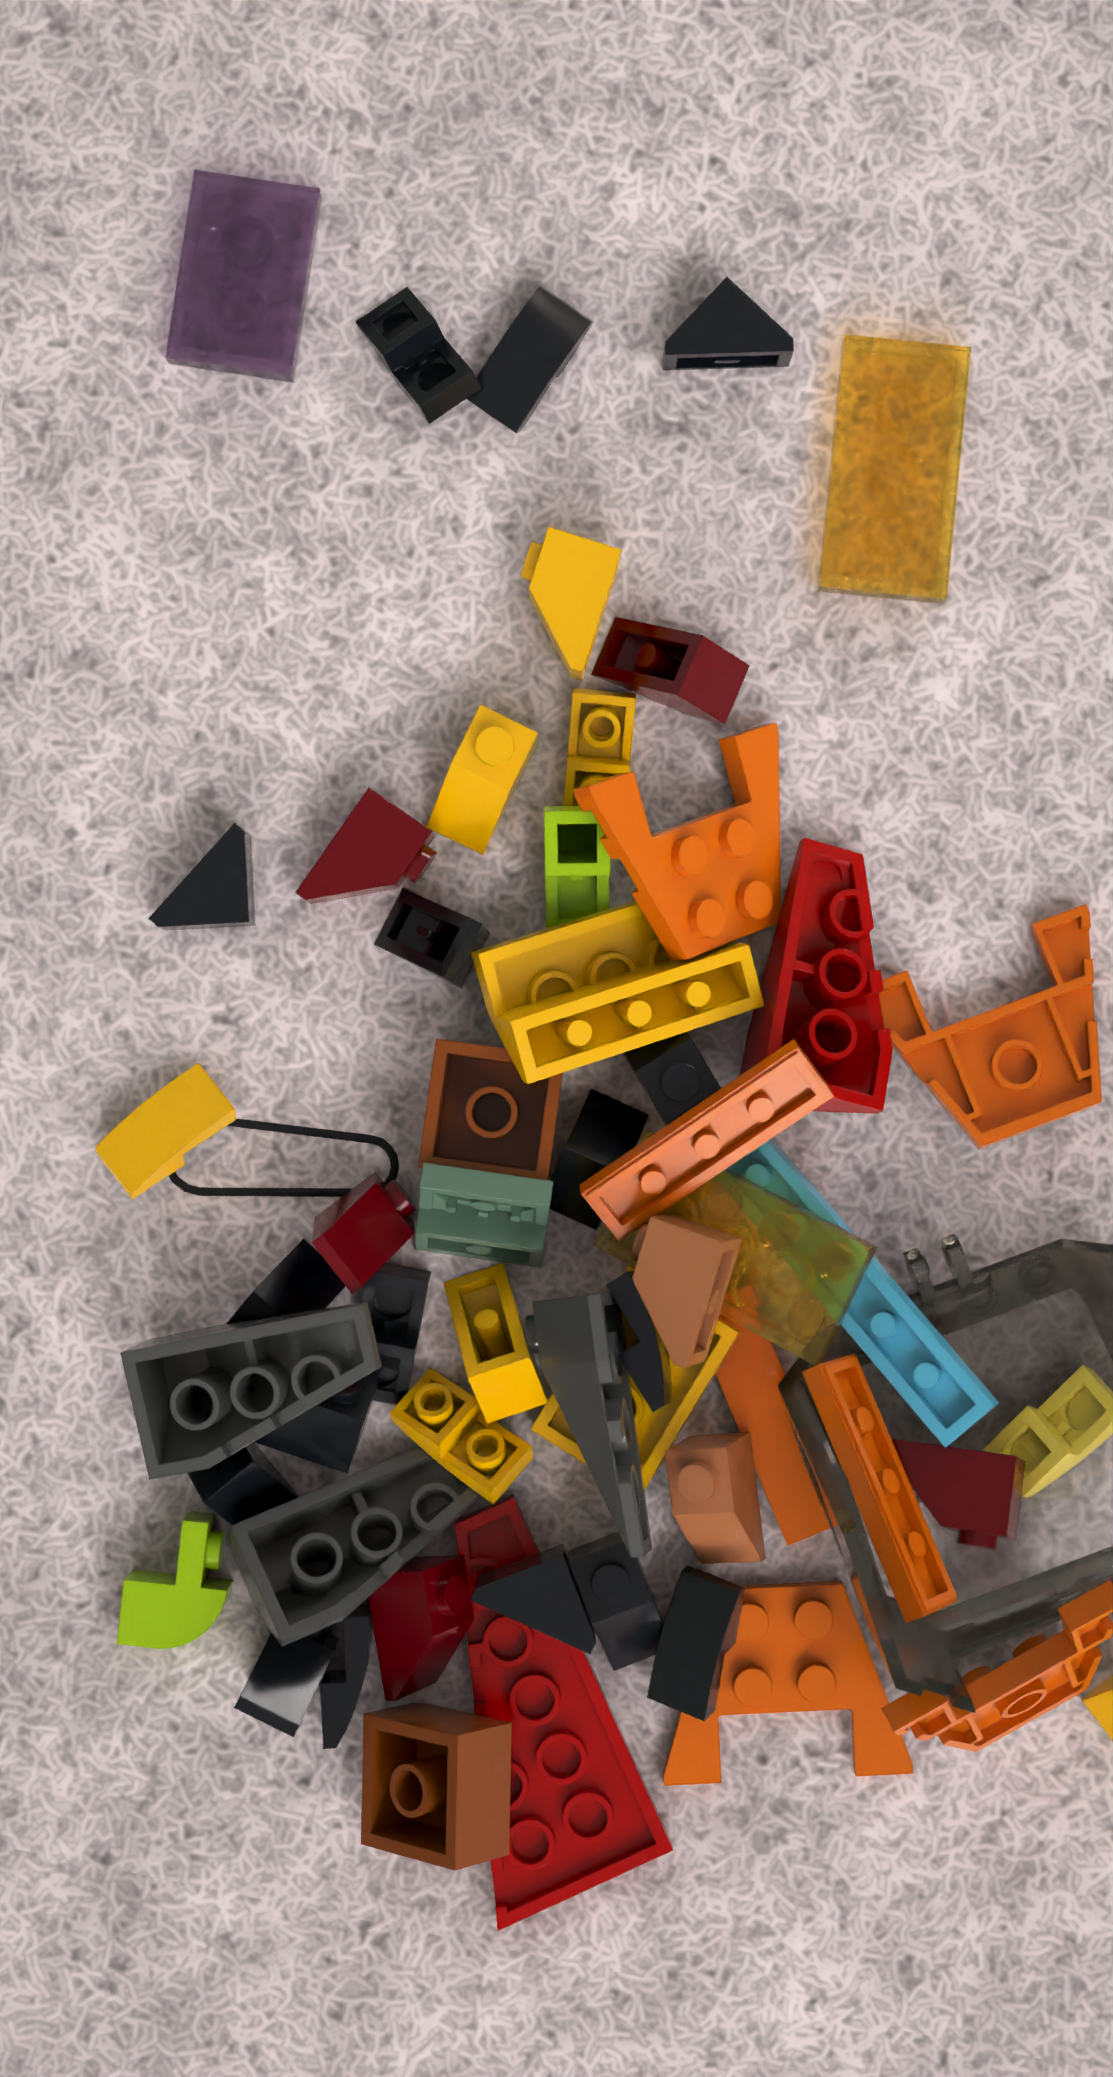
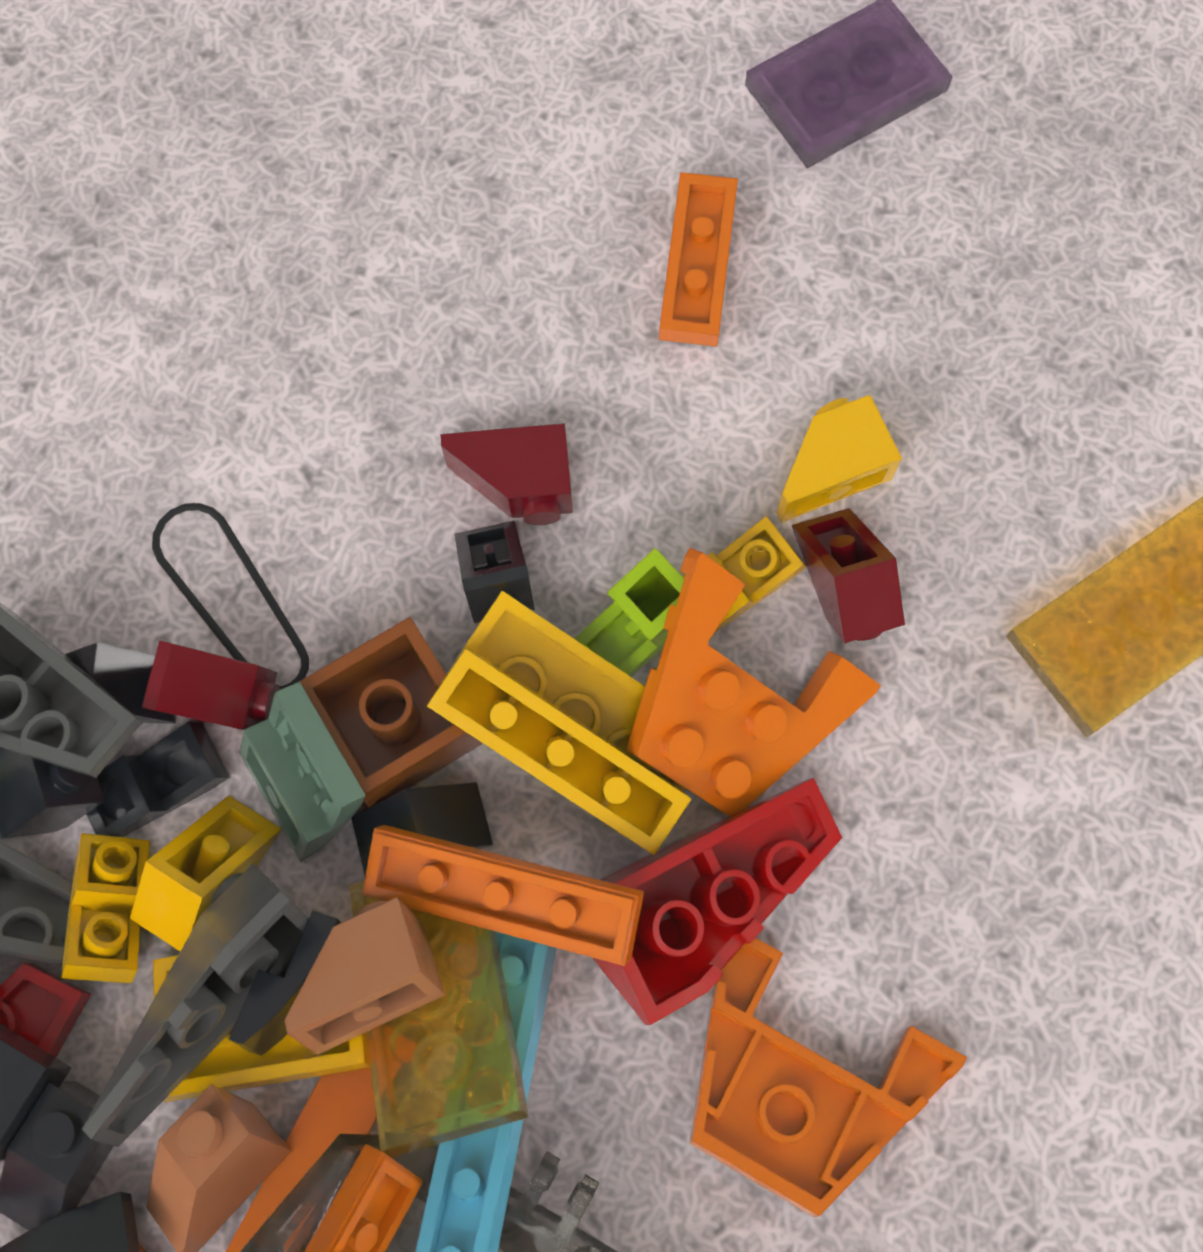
camera: 55 degrees right, 15 degrees down
(164, 1128) = (192, 490): yellow slope -> none
(215, 891) = (399, 386): black slope -> none
(303, 548) = (698, 259): none -> orange plate
(418, 355) = (903, 228): black slope -> none
(482, 779) = (646, 504): yellow slope -> none
(529, 358) = (972, 296): black slope -> none
(672, 1075) = (538, 825): black slope -> none
(728, 334) = (1123, 412): black slope -> none

